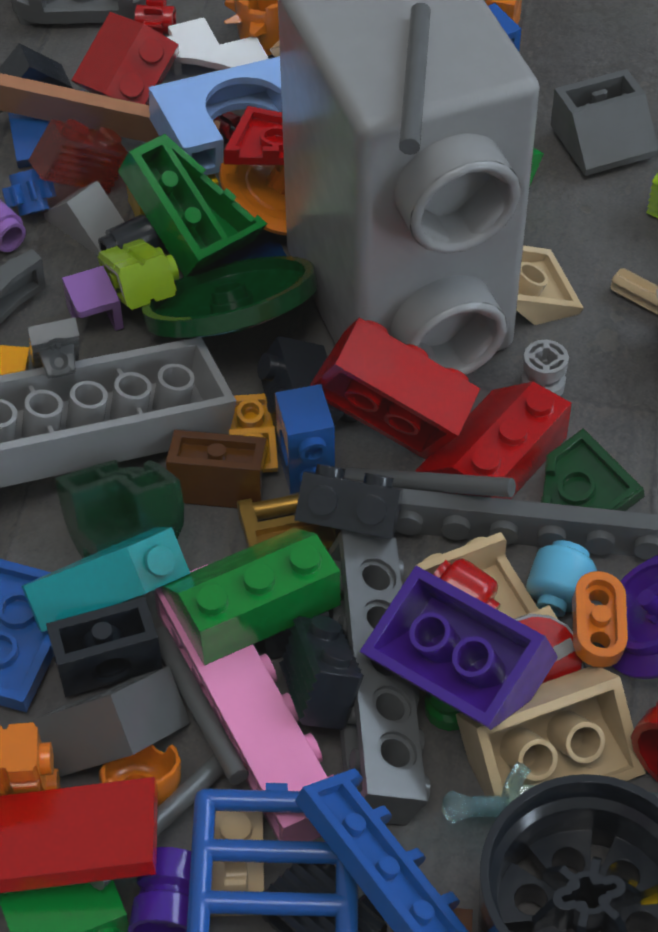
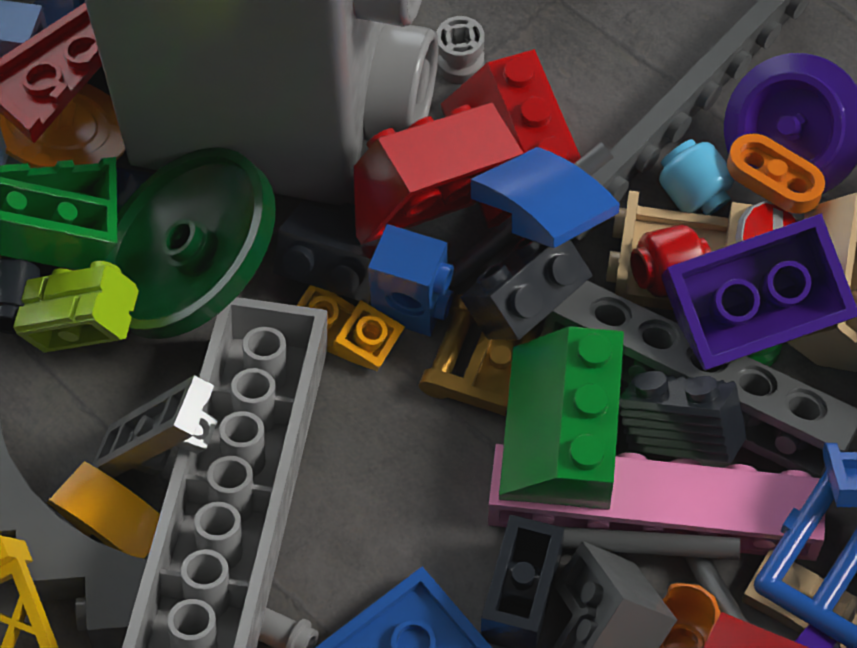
camera: 55 degrees left, 10 degrees up
(91, 294) = (65, 365): medium lavender panel -> none
(107, 577) = (460, 528): teal slope -> none
(115, 503) = (371, 484): clear green brick -> none
(217, 467) = (375, 374): reddish brown panel -> none
(423, 463) = (546, 197): none -> blue slope
(588, 476) = (606, 95): dark green plate -> none

